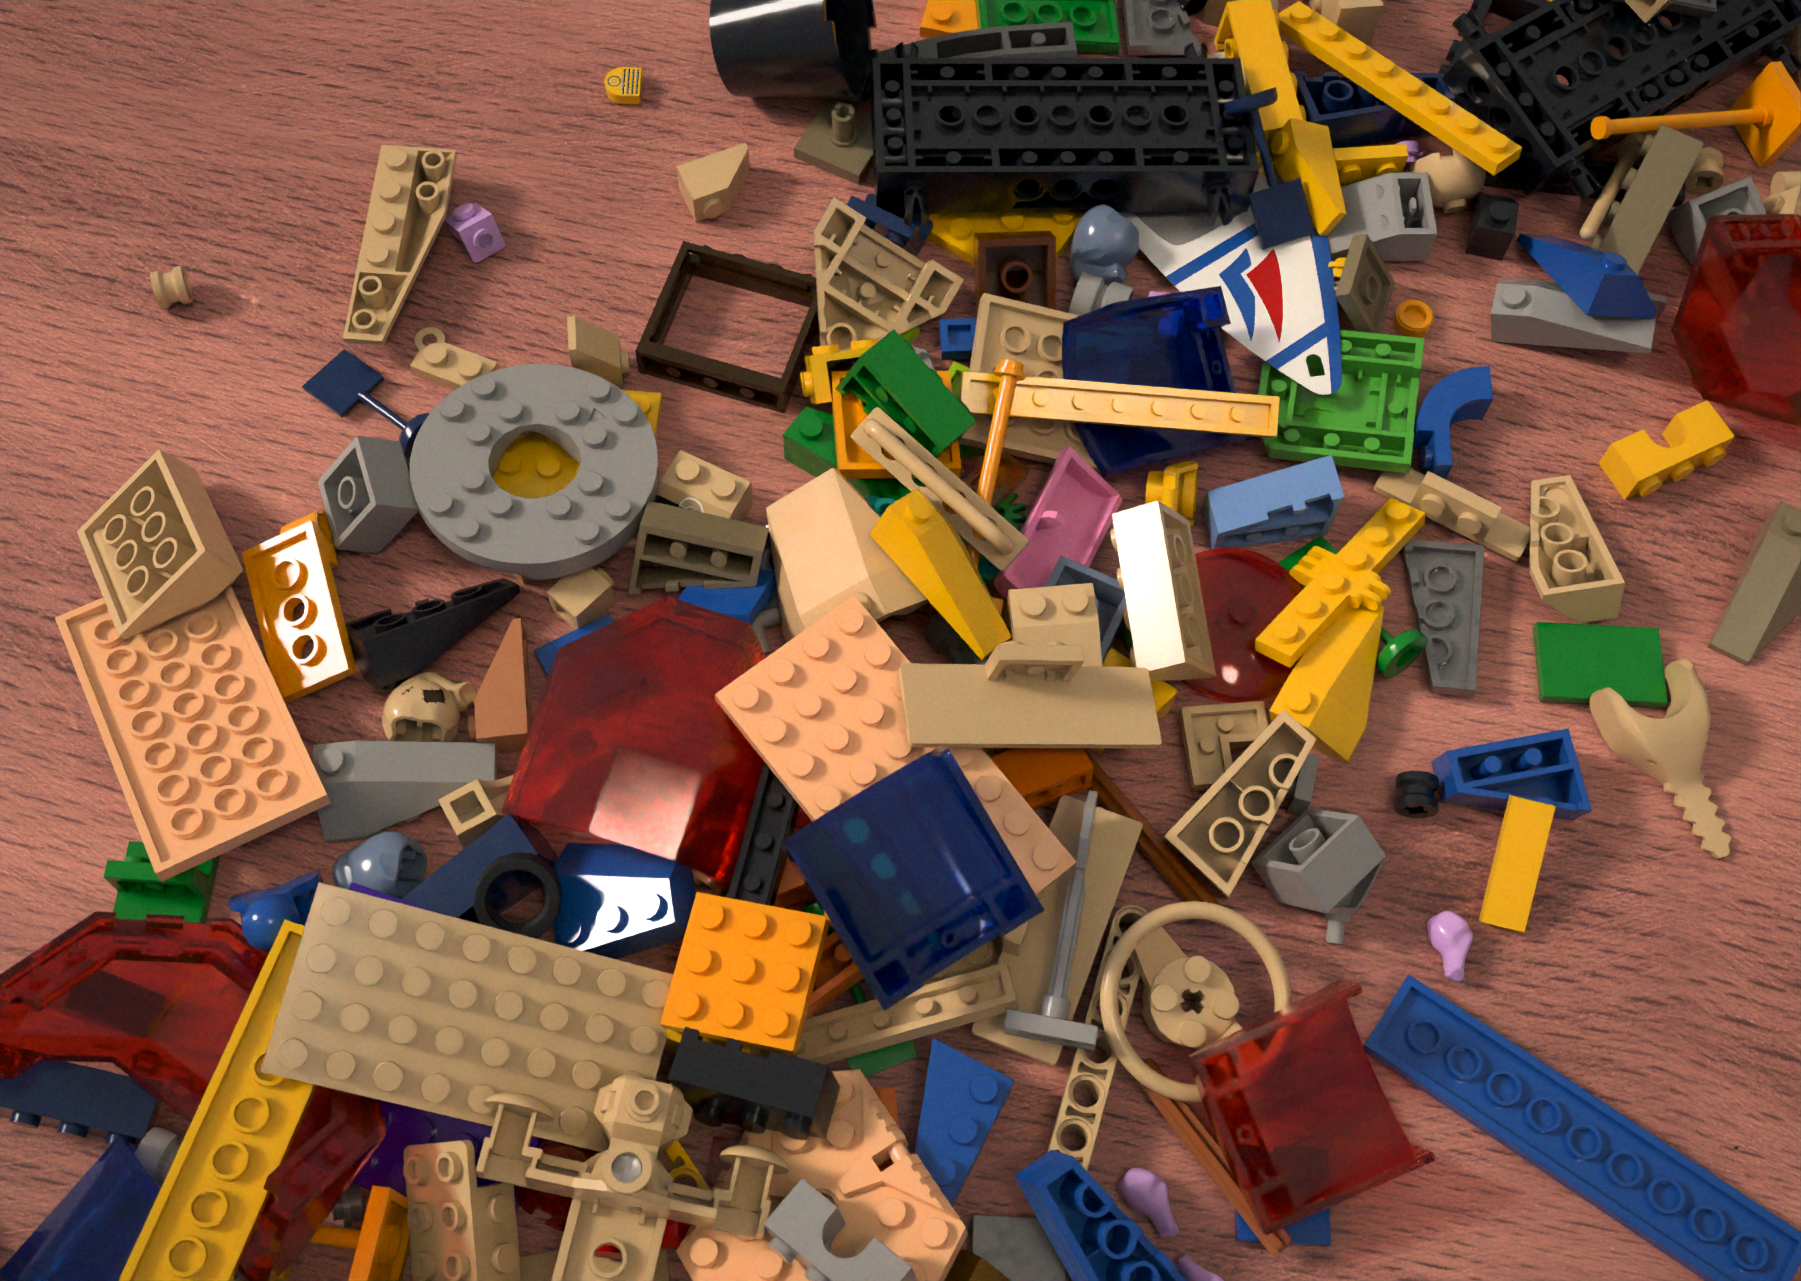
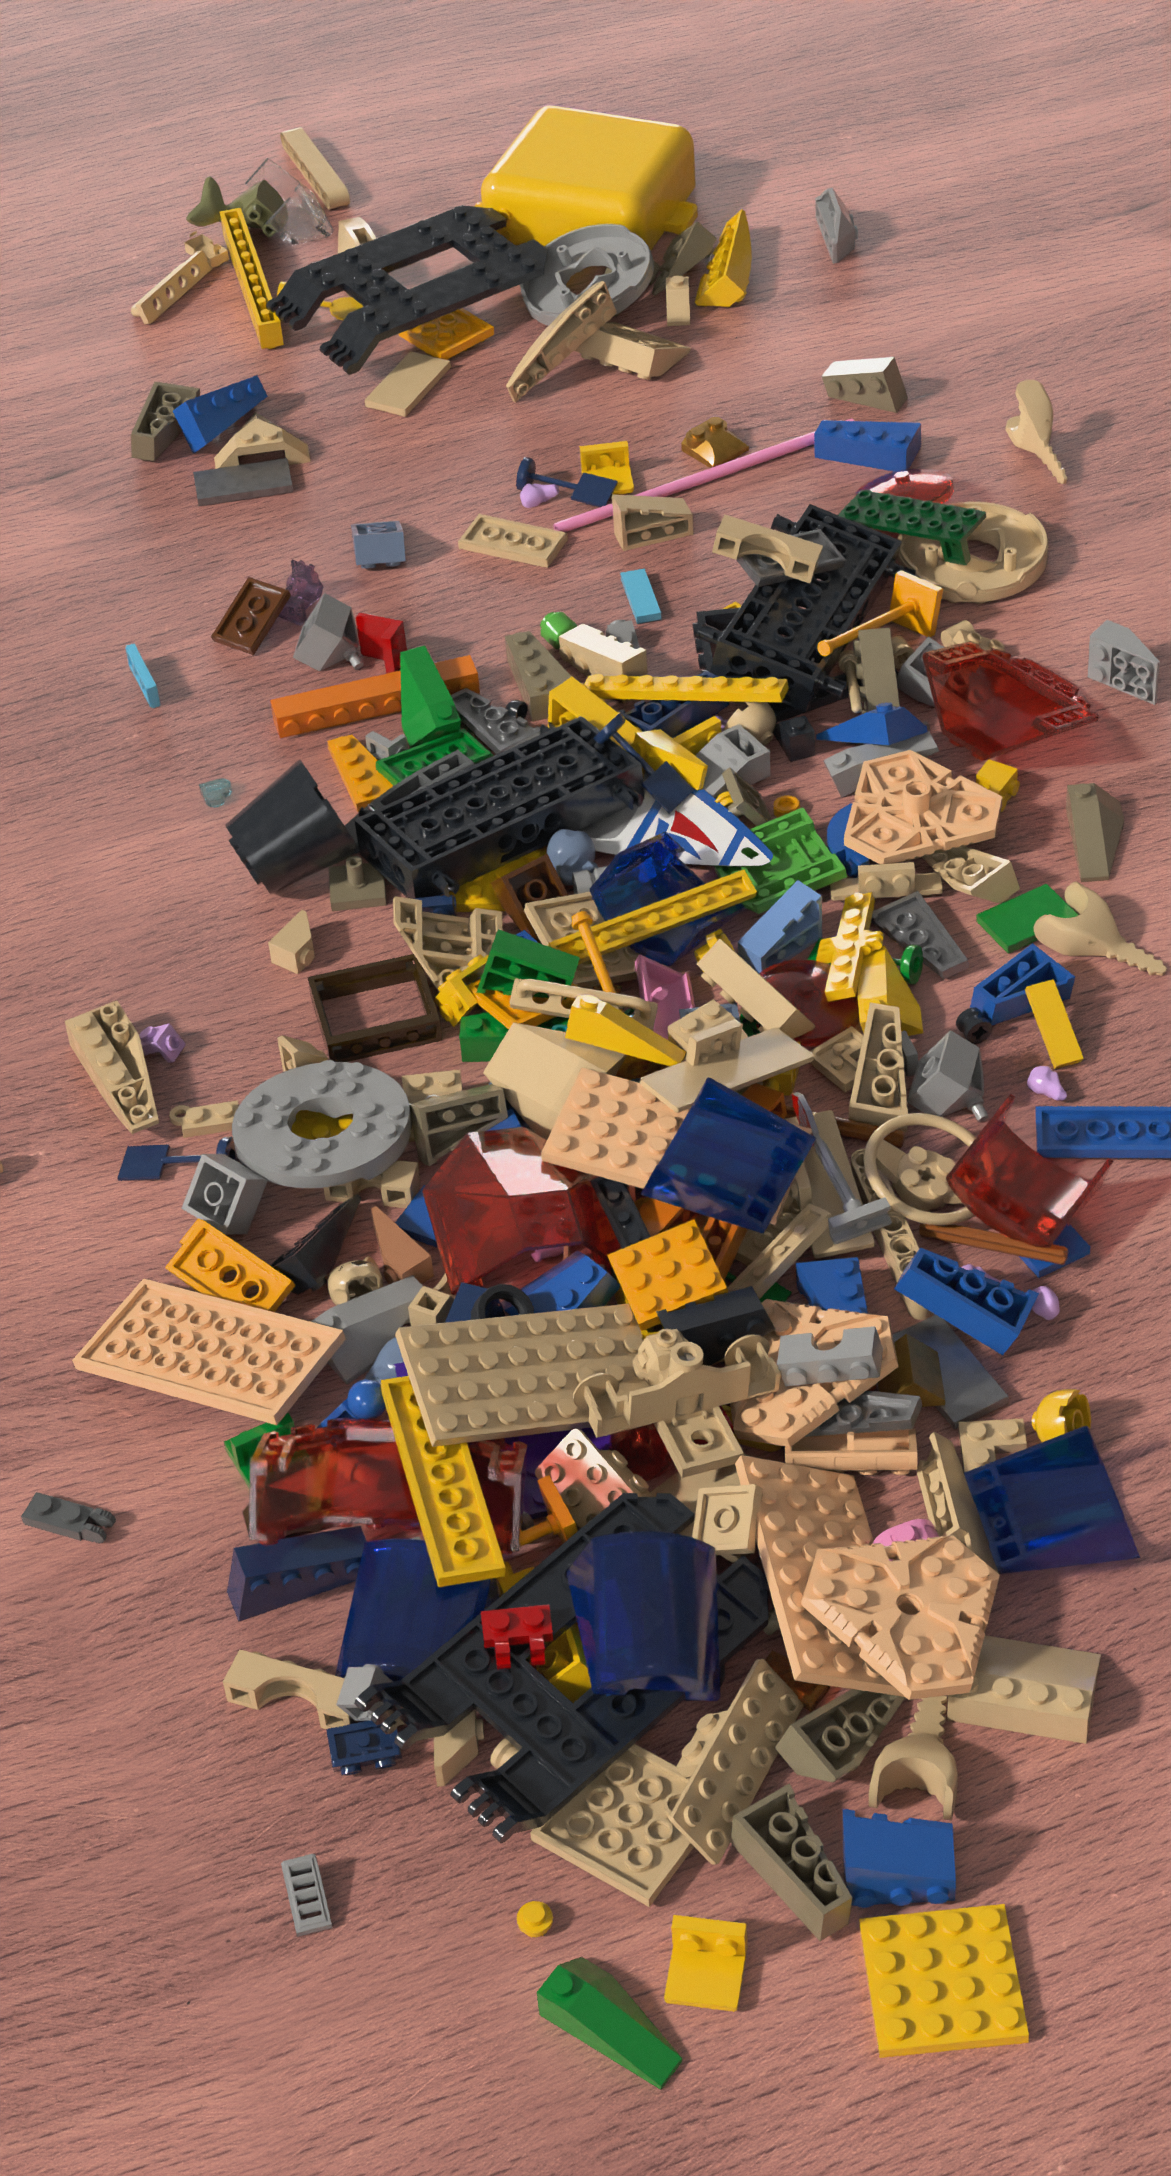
camera: 25 degrees left, 20 degrees down
(158, 546) = (109, 1287): tan slope -> none
(624, 85) = (188, 925): yellow tile -> none
(1556, 422) = (914, 808): none -> light nougat plate

